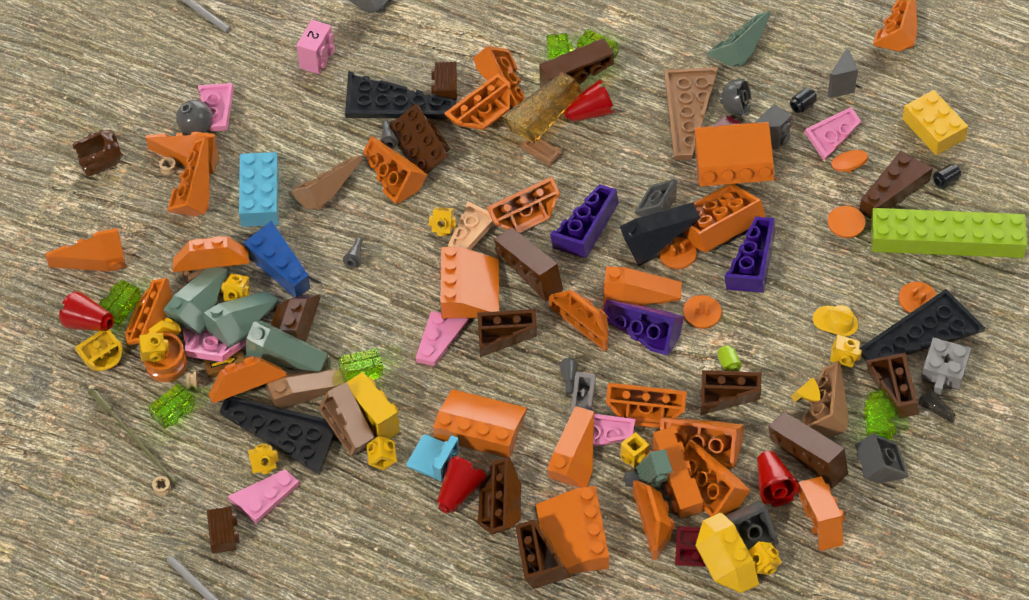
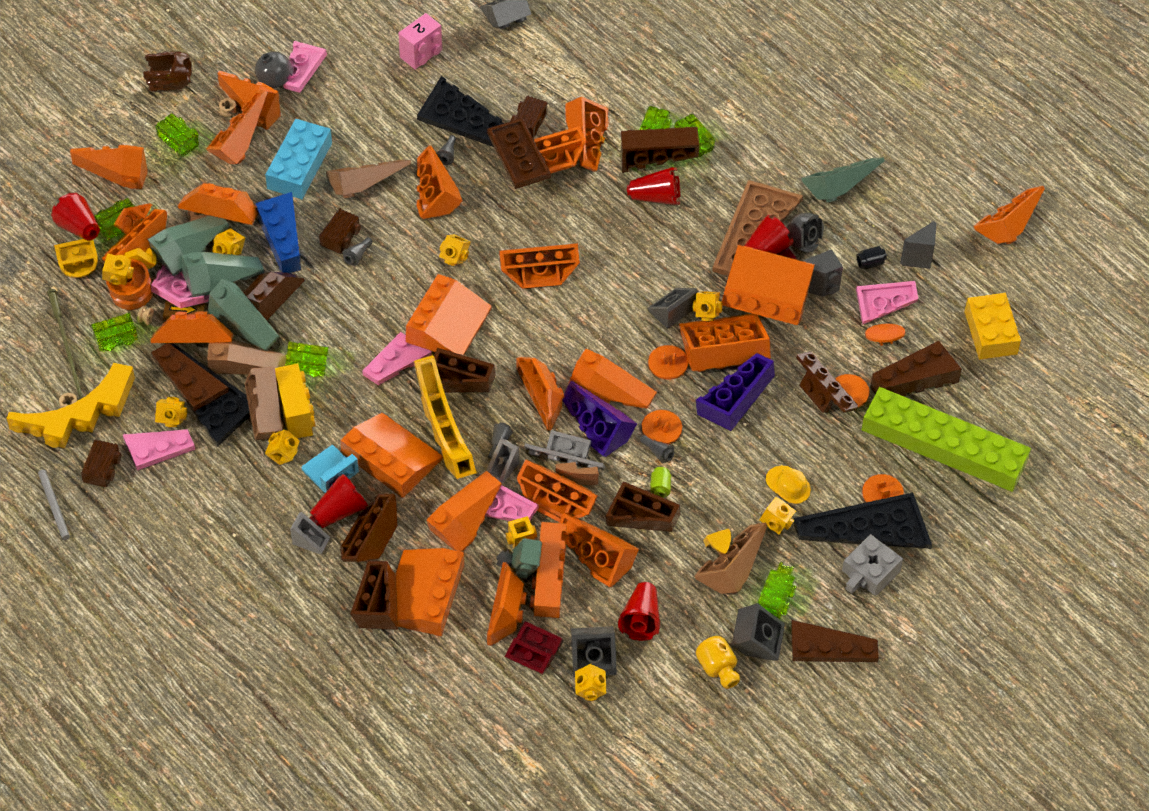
camera: 20 degrees right, 0 degrees up
(134, 296) = (131, 216): none -> orange slope
(135, 206) = (177, 134): none -> clear neon green brick
(179, 494) = (82, 415): none -> yellow arch
(264, 422) = (189, 378): none -> reddish brown wing
(329, 241) = (340, 231): none -> reddish brown brick
(420, 139) = (476, 165): reddish brown bracket -> none
(446, 523) = (308, 534): none -> light grey slope
(458, 115) = (519, 153): none -> reddish brown tile
(472, 227) = (479, 268): light nougat wing -> none
(520, 385) = (436, 408): none -> yellow arch
(530, 263) = (515, 319): reddish brown wedge -> none
(542, 151) = (588, 216): medium nougat tile -> none
(543, 107) = (606, 174): clear yellow wedge -> none
(585, 225) = (592, 301): dark purple wedge -> none
(633, 359) = (567, 448): none -> light grey bracket
(653, 232) = (648, 332): black wedge -> none
(658, 380) = (582, 476): none -> medium nougat slope
(689, 184) = (714, 304): none -> yellow brick
(713, 111) = (770, 236): none -> red cone
(714, 331) = (662, 451): none -> dark grey cone
(717, 485) = (584, 595): orange wedge -> none
(726, 554) = (554, 665): yellow wedge -> none
(810, 448) = (692, 596): reddish brown wedge -> none
(823, 226) = (822, 386): none -> reddish brown bracket
(823, 511) = (670, 661): orange wedge -> none
(862, 496) = (718, 660): none -> yellow piece
(894, 379) = (812, 565): reddish brown wedge -> none
(935, 404) = (840, 598): clear smoke piece -> none
(943, 447) = (824, 644): none -> reddish brown wing
(946, 176) = (976, 383): black brick -> none

